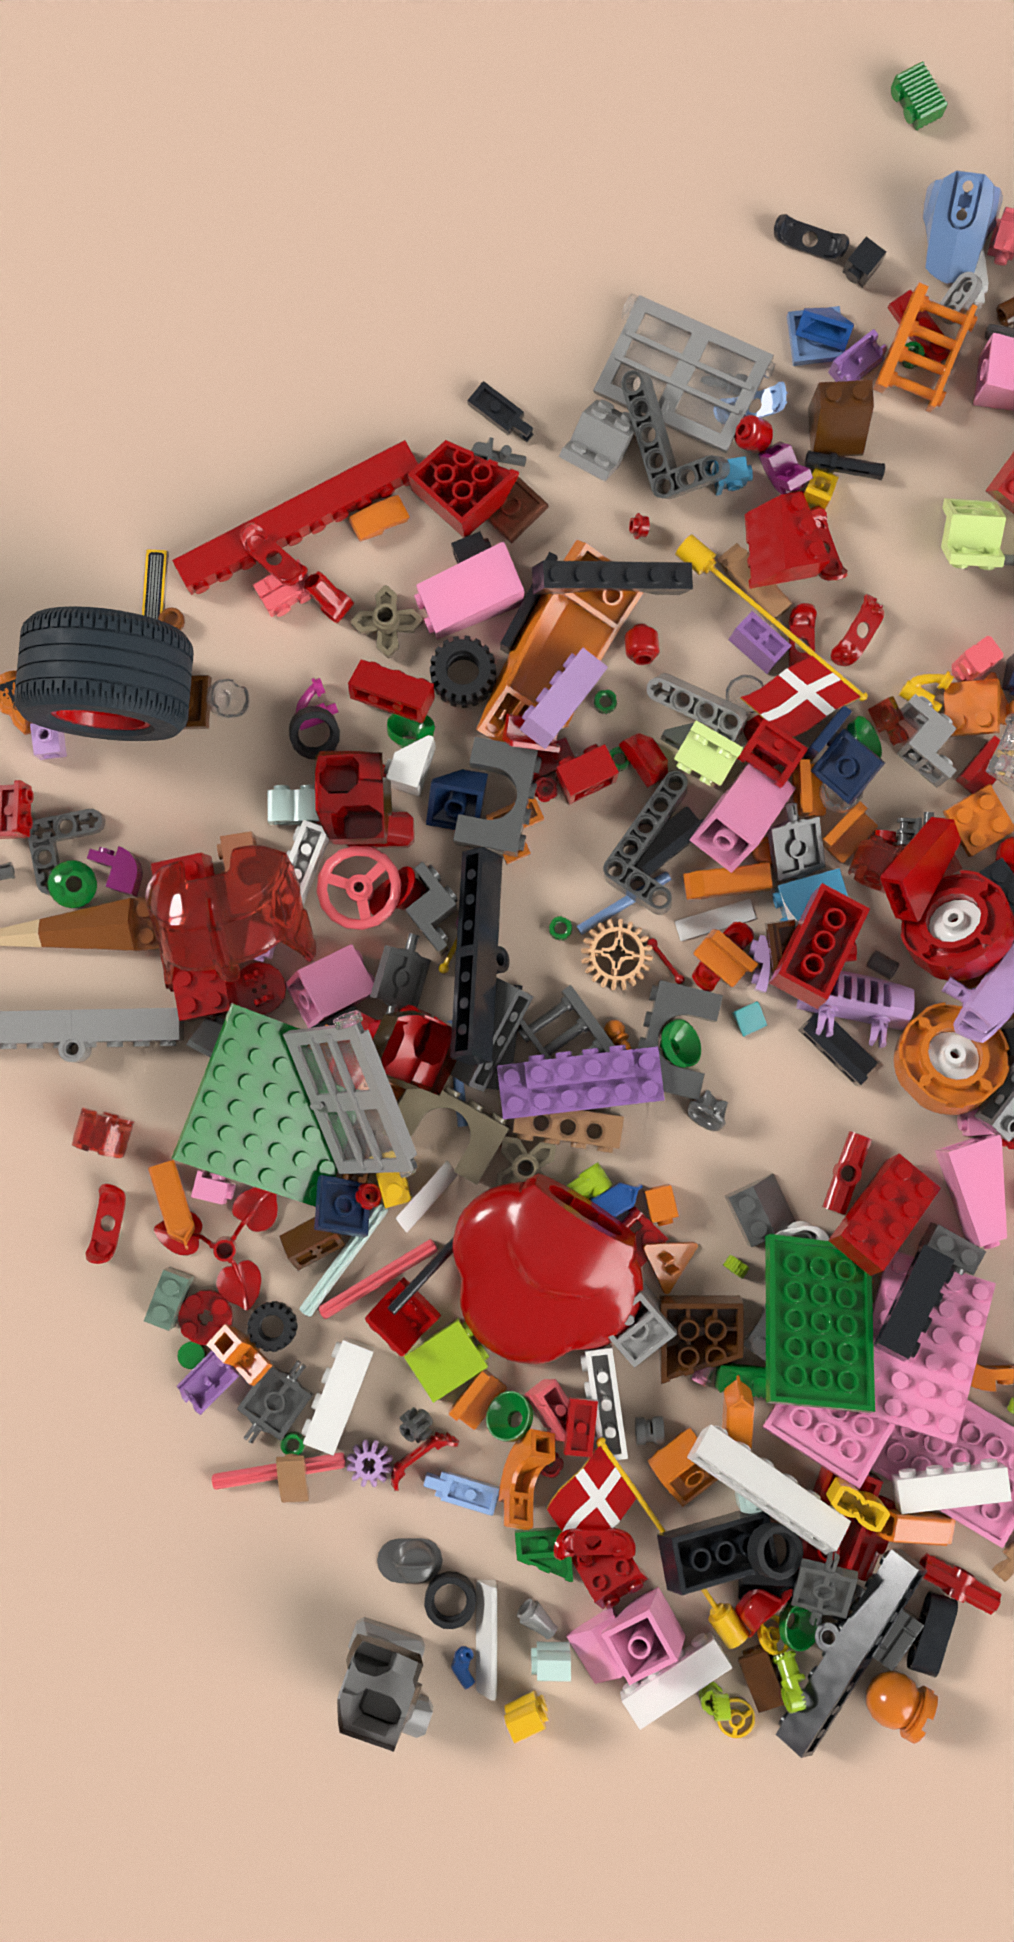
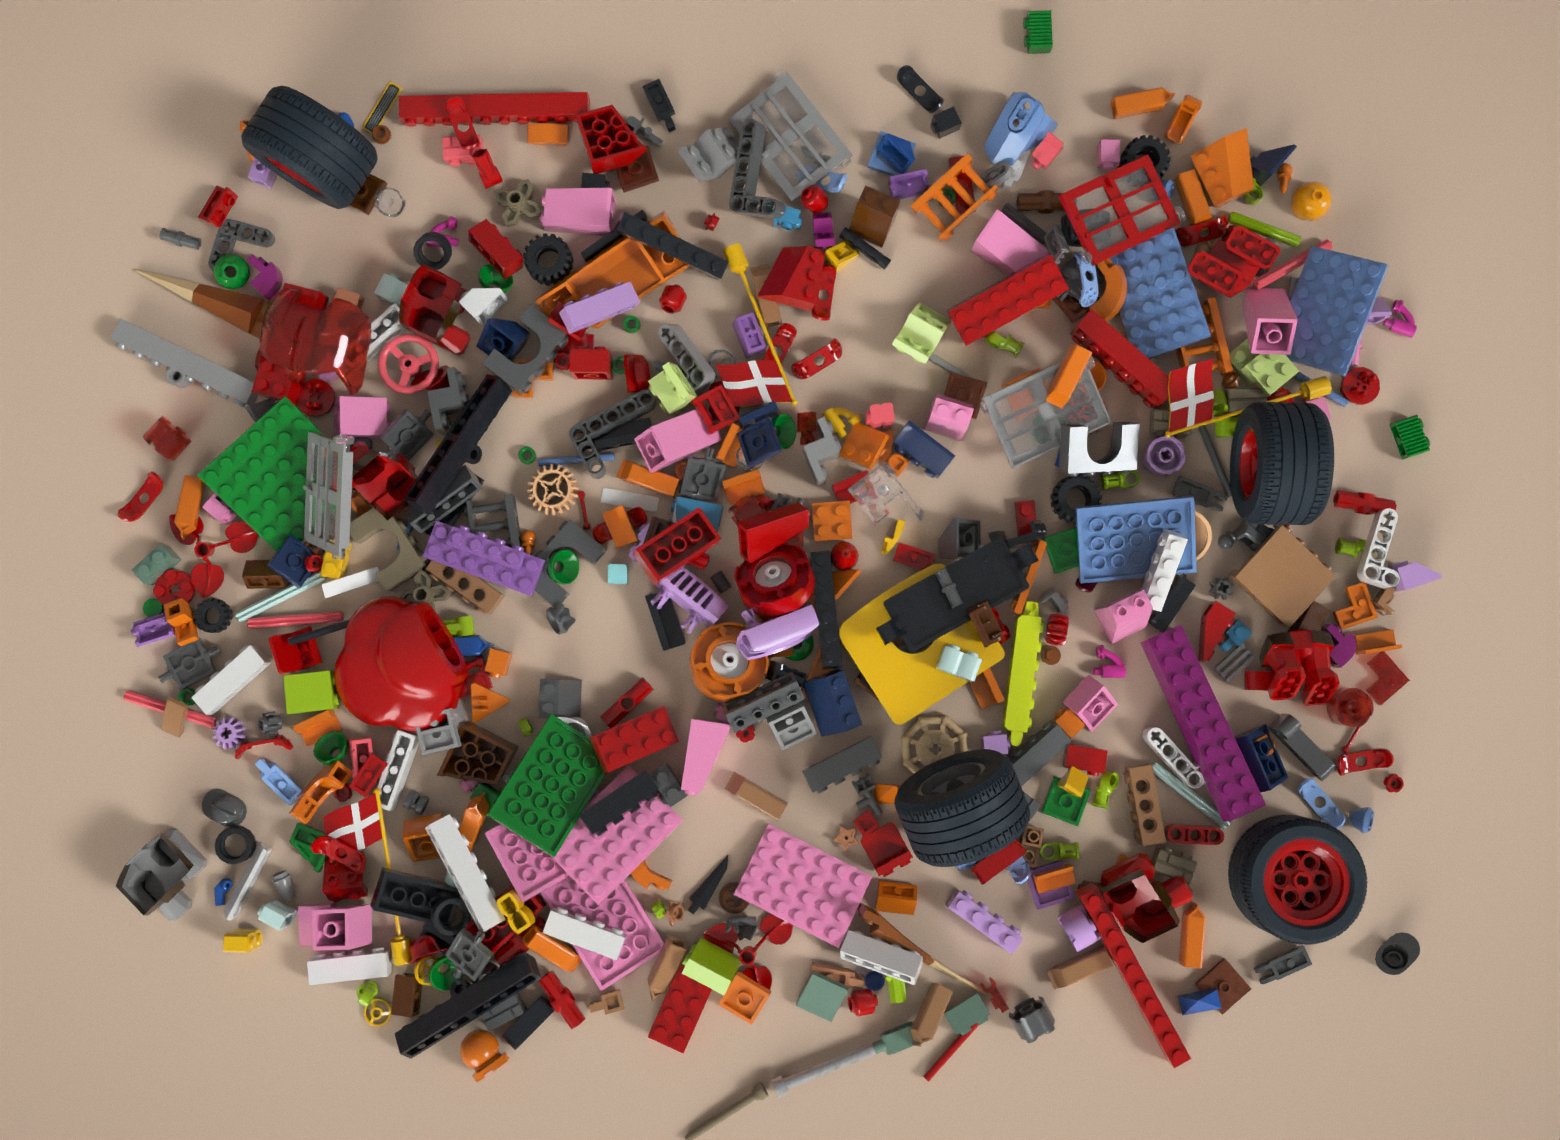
camera: 25 degrees right, 0 degrees up
(791, 1677) = (422, 1002): lime connector -> none

